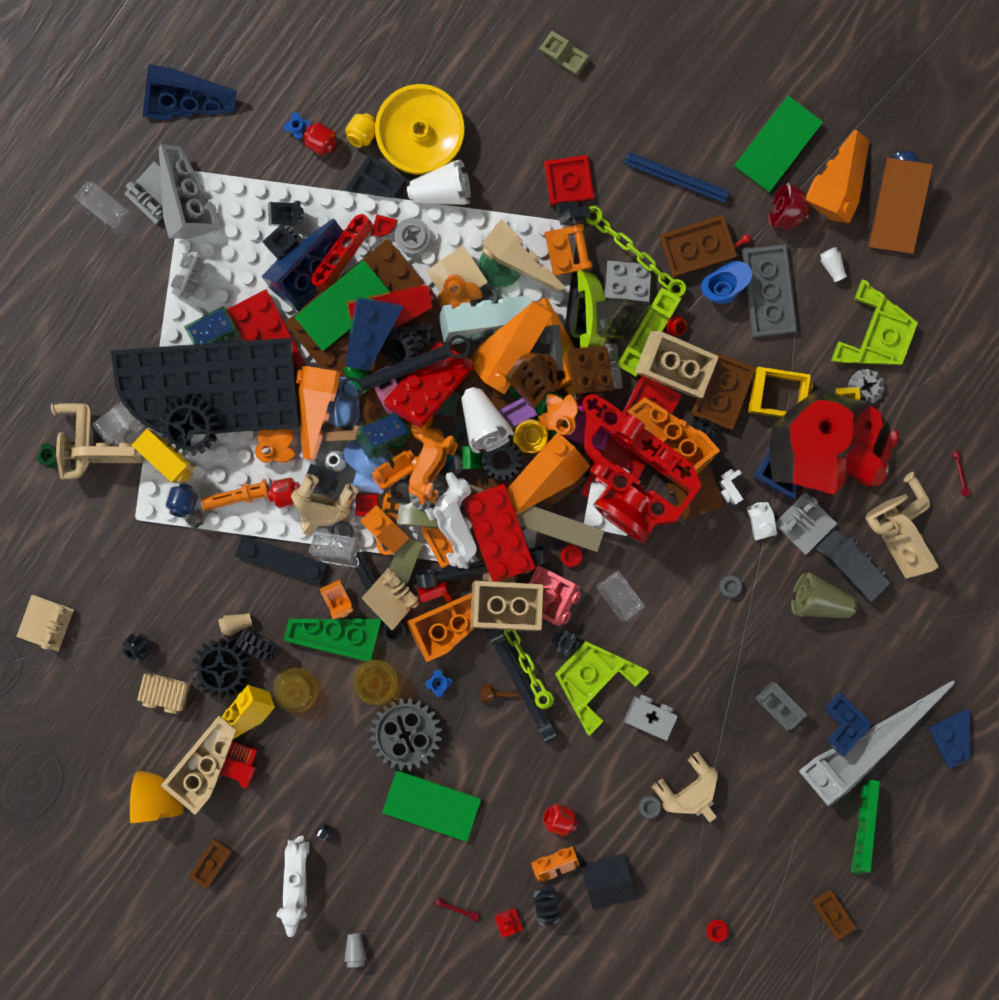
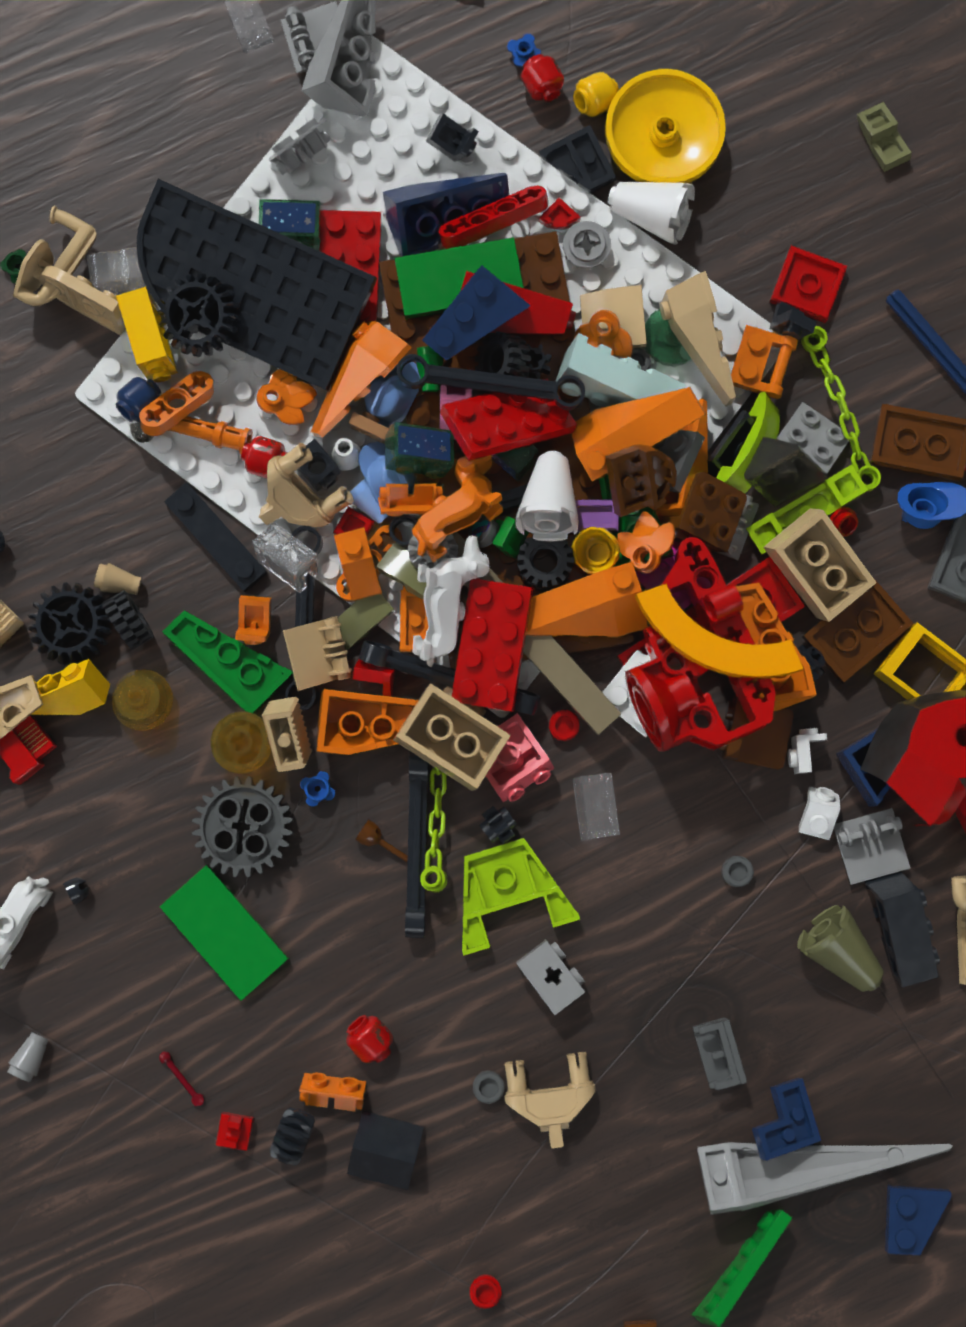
camera: 30 degrees right, 5 degrees down
(209, 499) = (172, 415): none -> orange beam
(271, 241) = (432, 155): black brick -> none
(401, 661) = (287, 734): none -> tan brick
(638, 463) = (711, 650): none -> light orange tile

